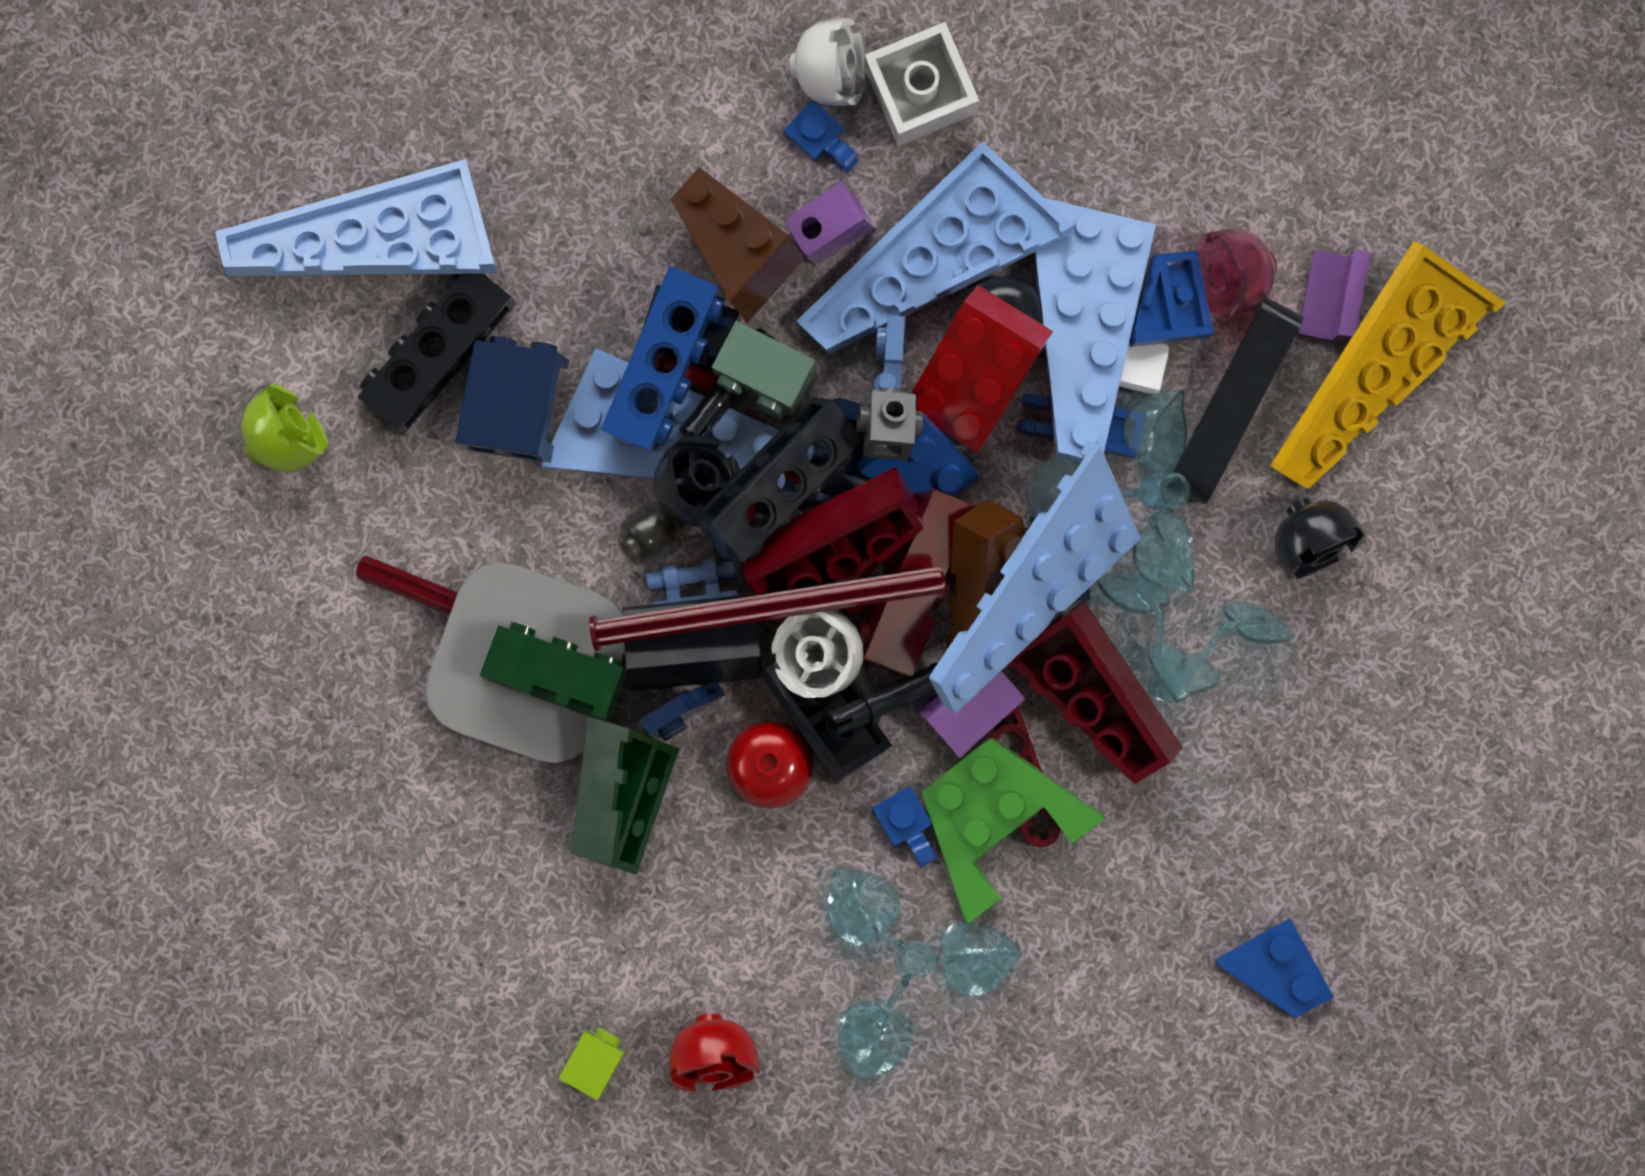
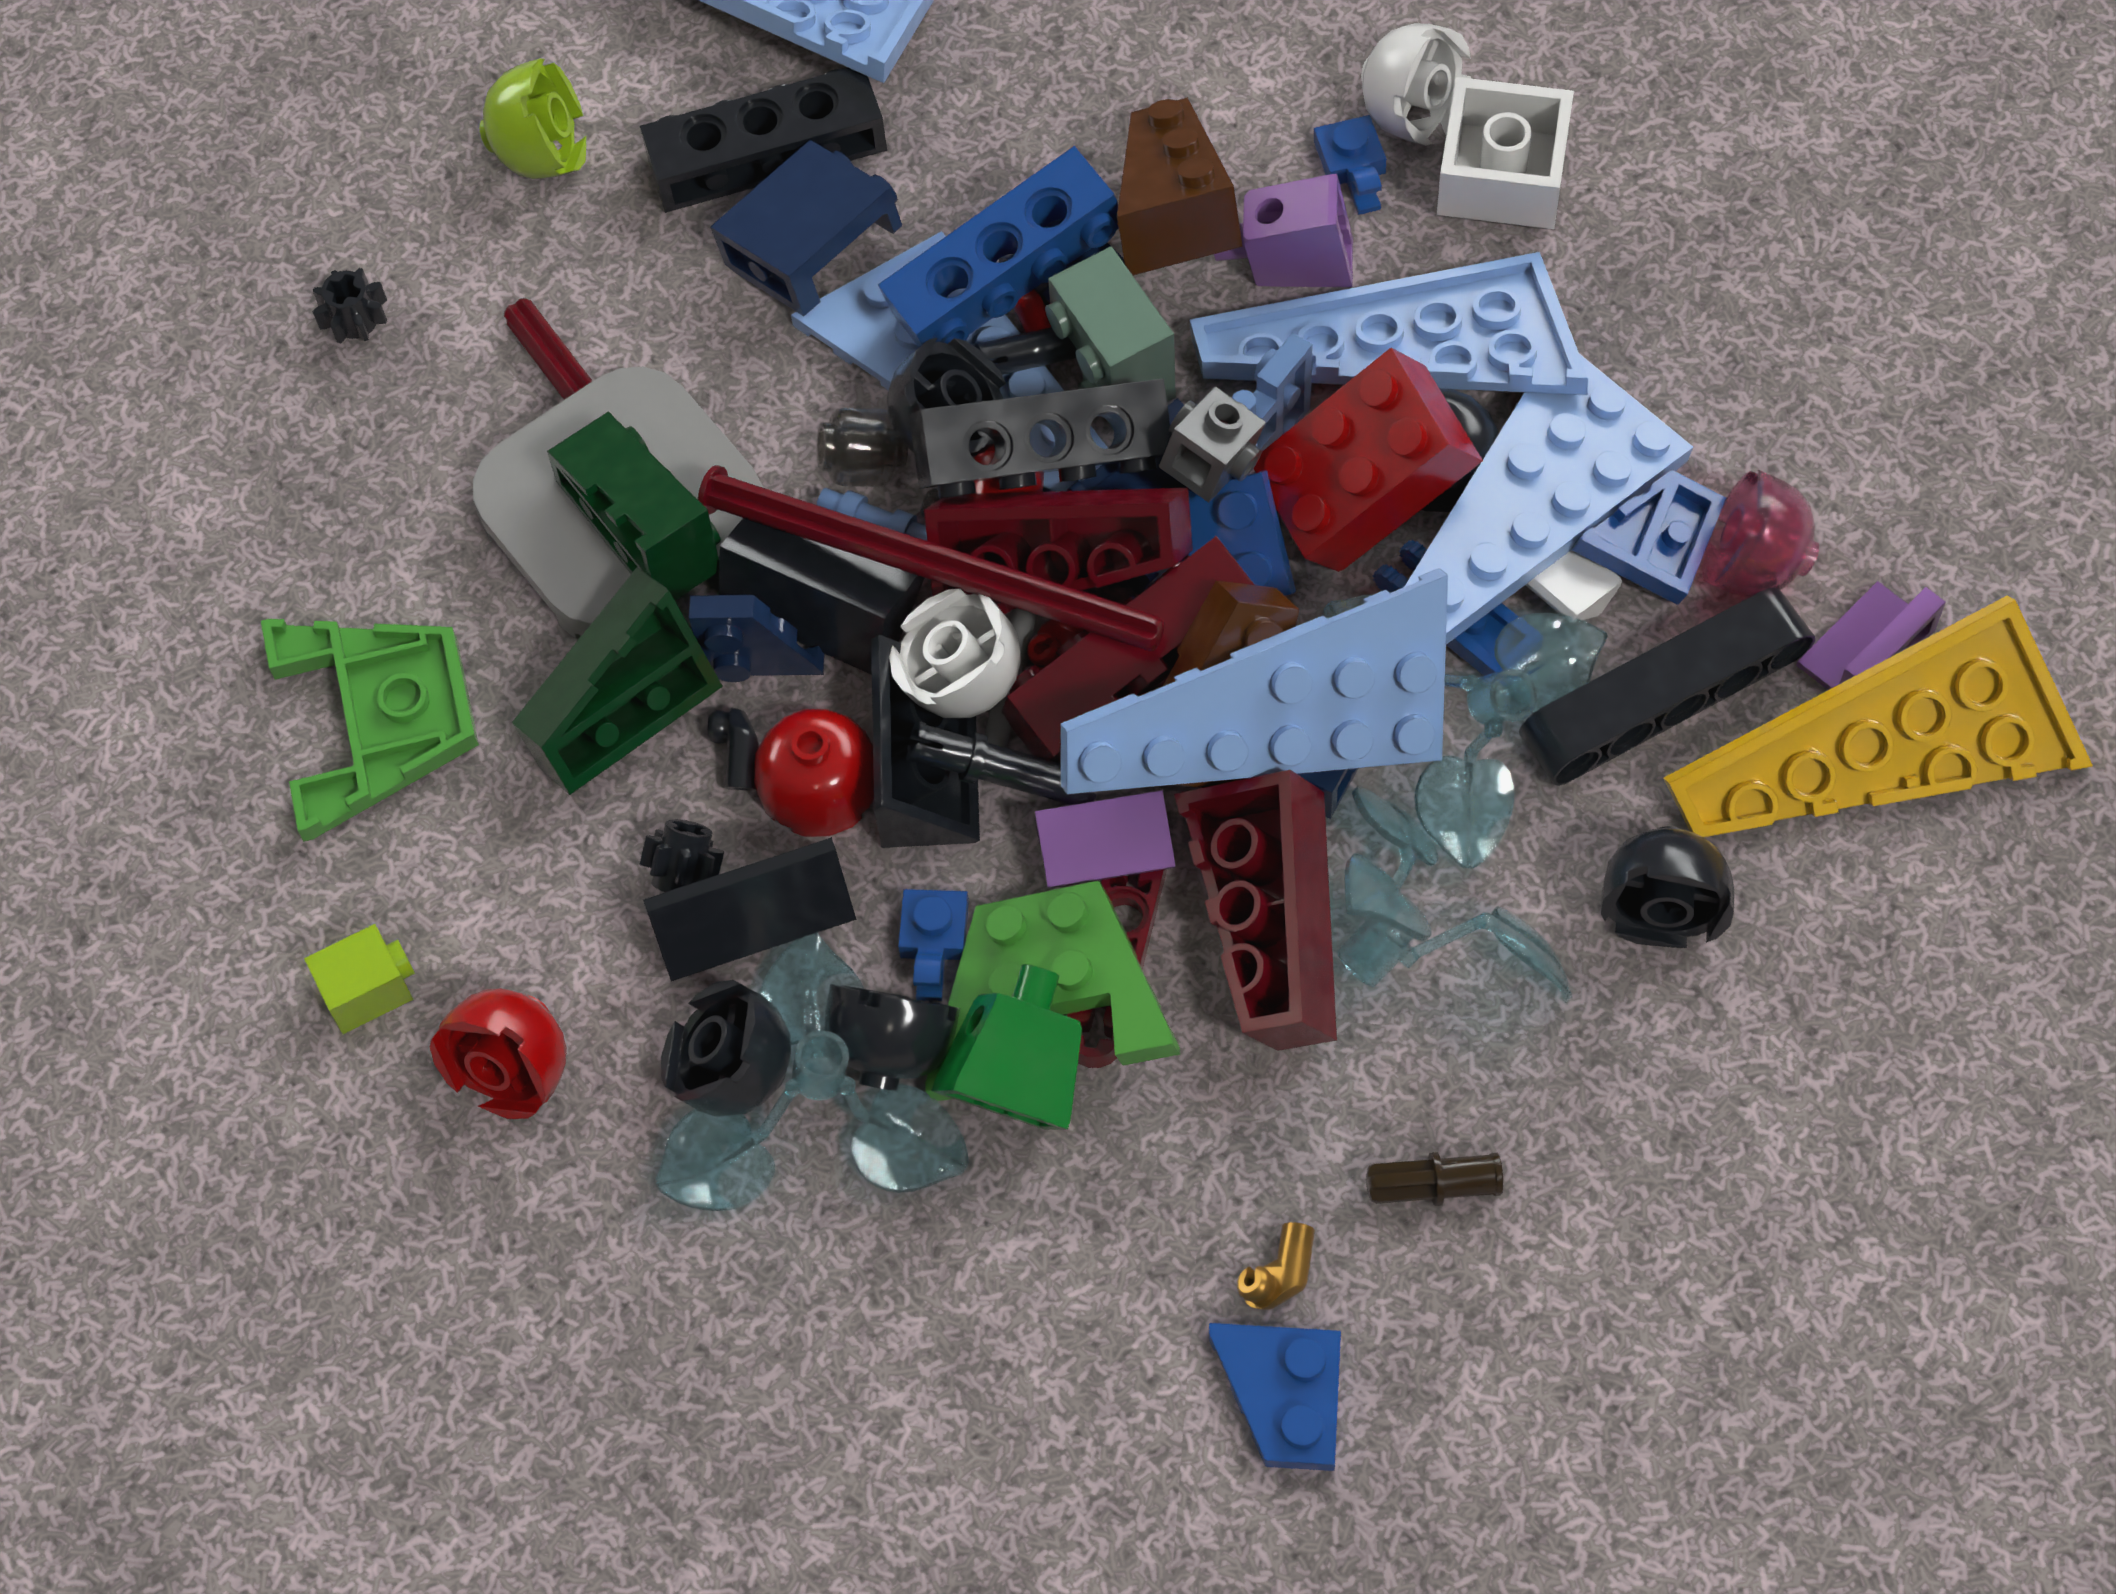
camera: 35 degrees right, 20 degrees down
(244, 625) = (349, 305): none -> black gear
(485, 876) = (400, 705): none -> bright green wing
(714, 776) = (742, 745): none -> black arm
(731, 872) = (680, 855): none -> black gear
(794, 879) = (750, 909): none -> black slope
(844, 978) = (727, 1052): none -> black cylinder
(928, 905) = (890, 1033): none -> black cylinder
(1014, 878) = (1016, 1054): none -> green torso
(1237, 905) = (1283, 1277): none -> pearl gold arm
(1287, 795) = (1435, 1179): none -> dark brown axle

